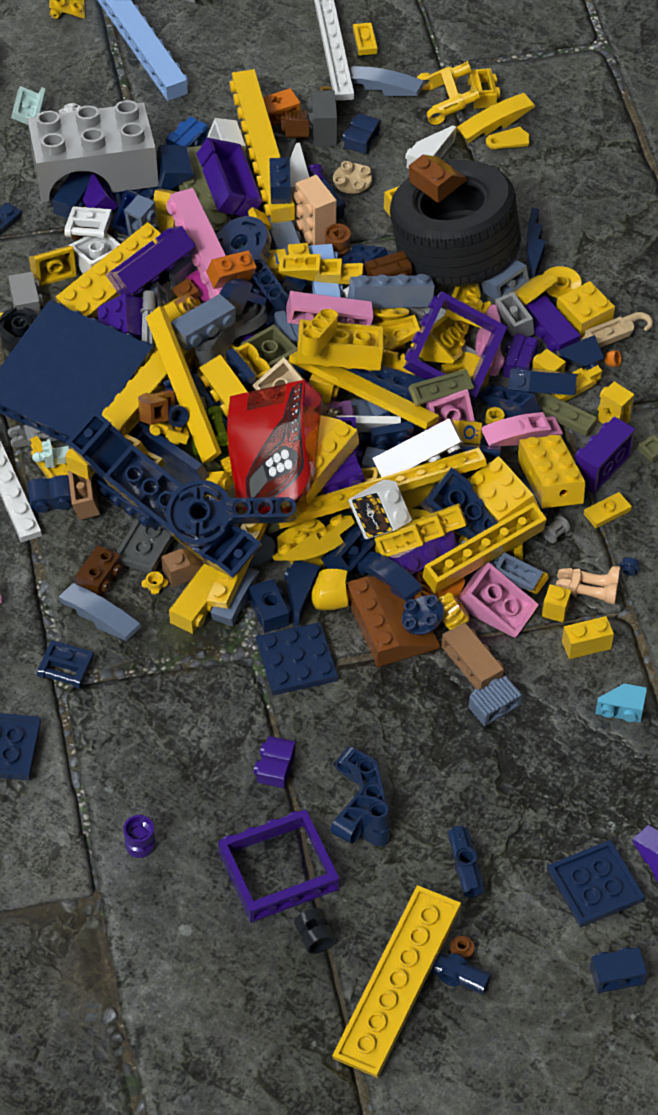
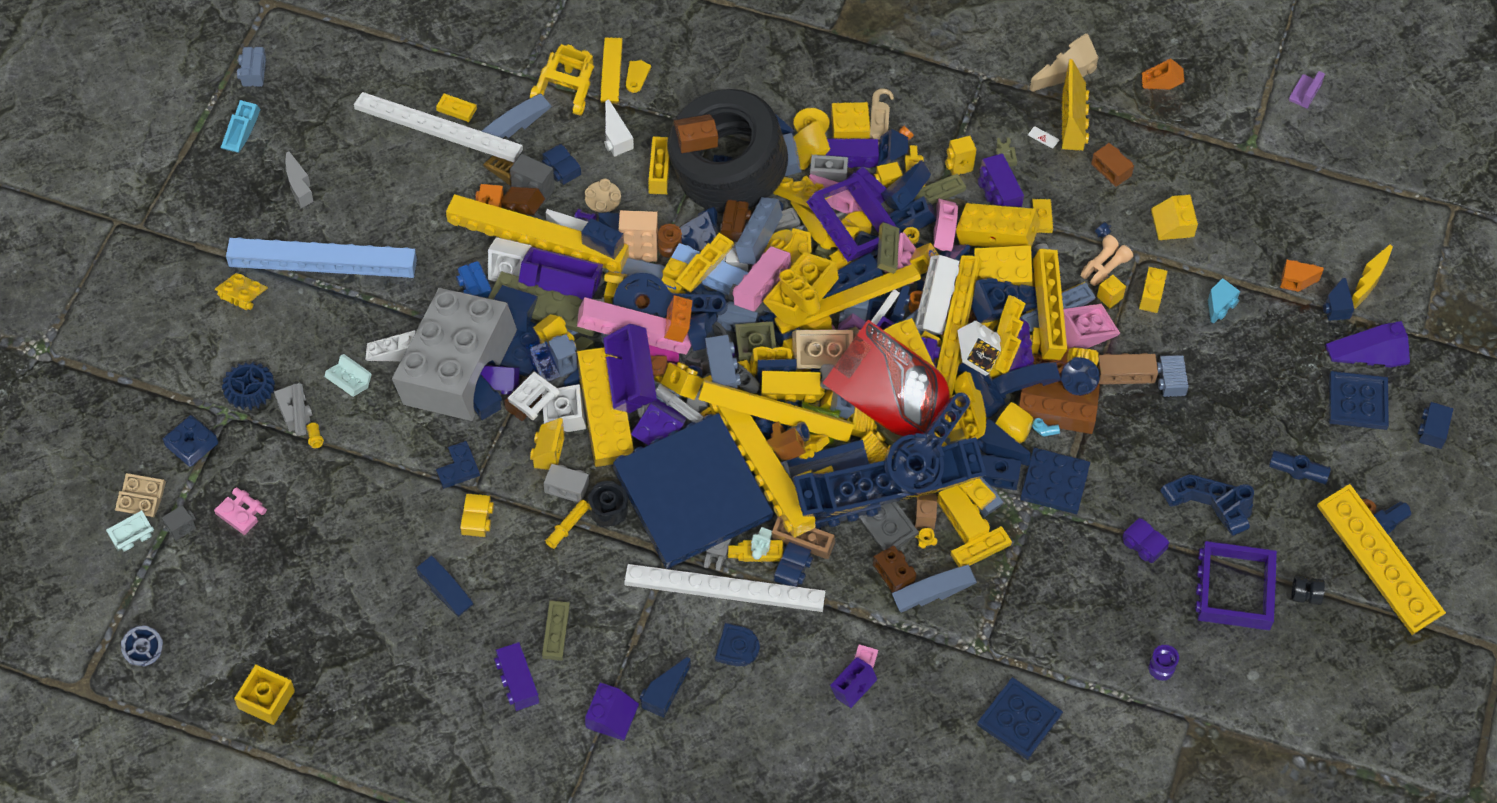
camera: 60 degrees left, 5 degrees up
(65, 657) = (963, 632): dark blue plate -> none
(172, 630) = (981, 547): none -> yellow plate
(348, 621) = (1043, 429): none -> medium azure arm

